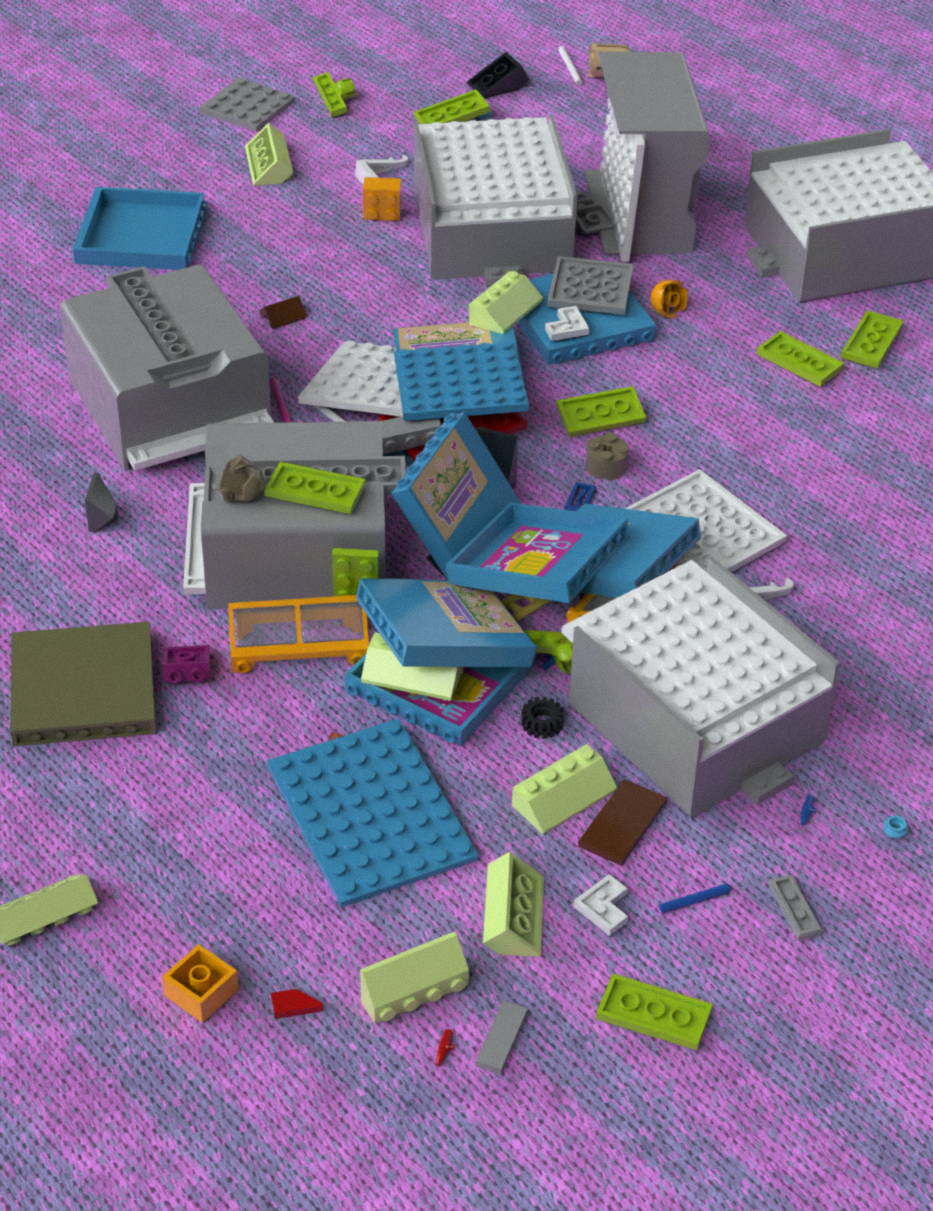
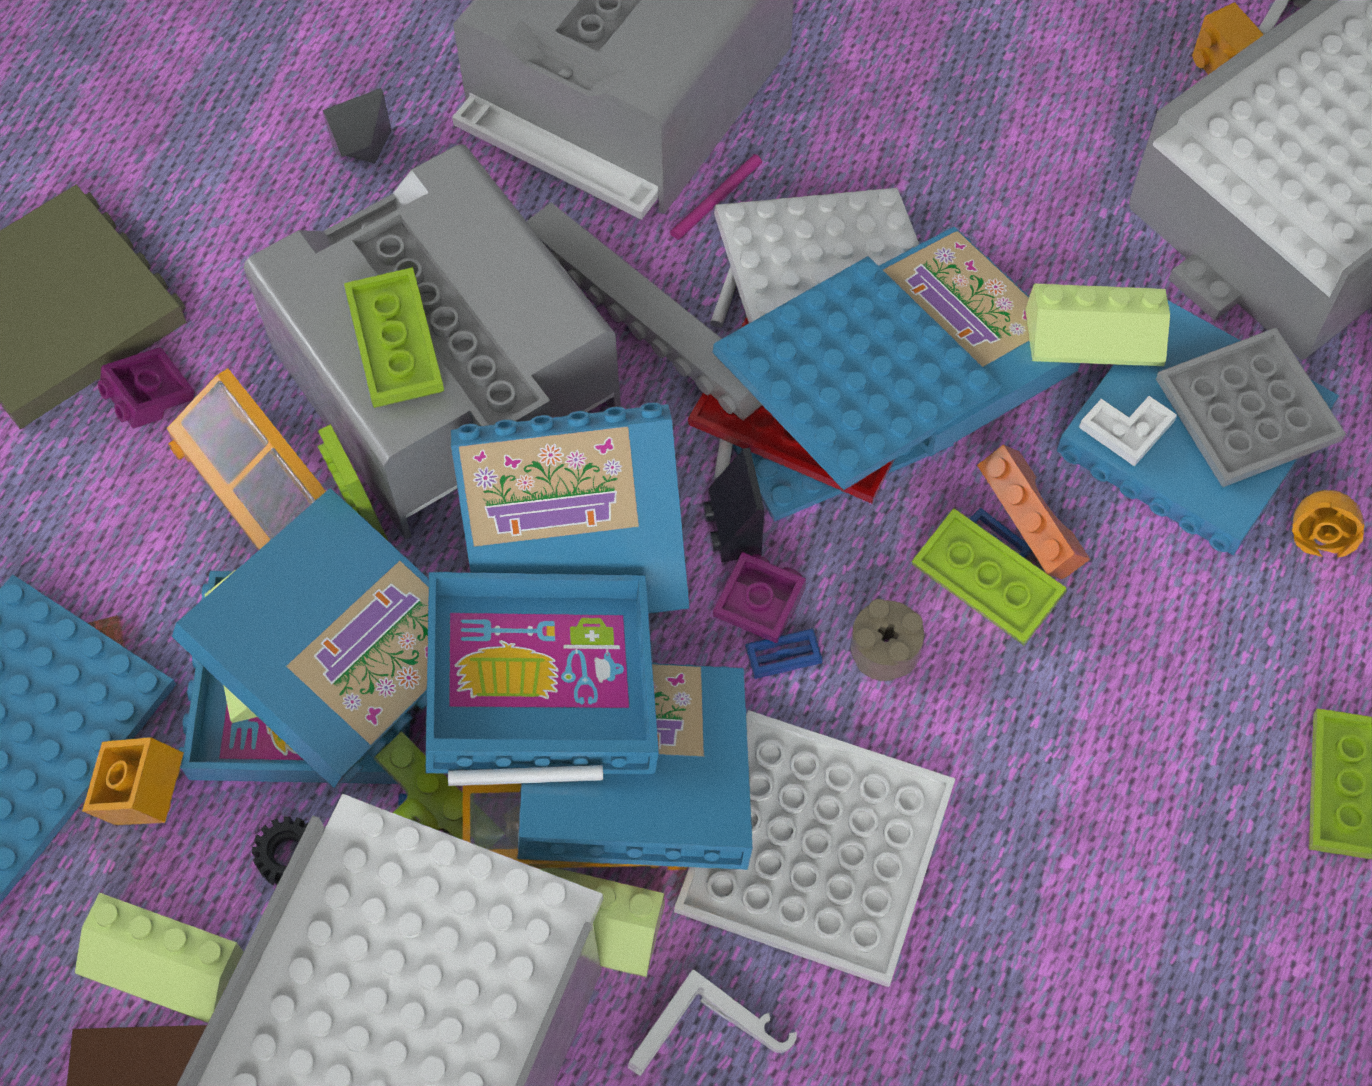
camera: 60 degrees right, 20 degrees up
(241, 480) = (333, 248): dark tan helmet -> none
(284, 312) = (902, 88): reddish brown panel -> none
(454, 751) = (133, 781): none -> light orange brick
(544, 486) = (760, 596): none -> magenta plate
(566, 377) = (1045, 534): none -> orange arch
(599, 570) = (525, 775): none -> white bar

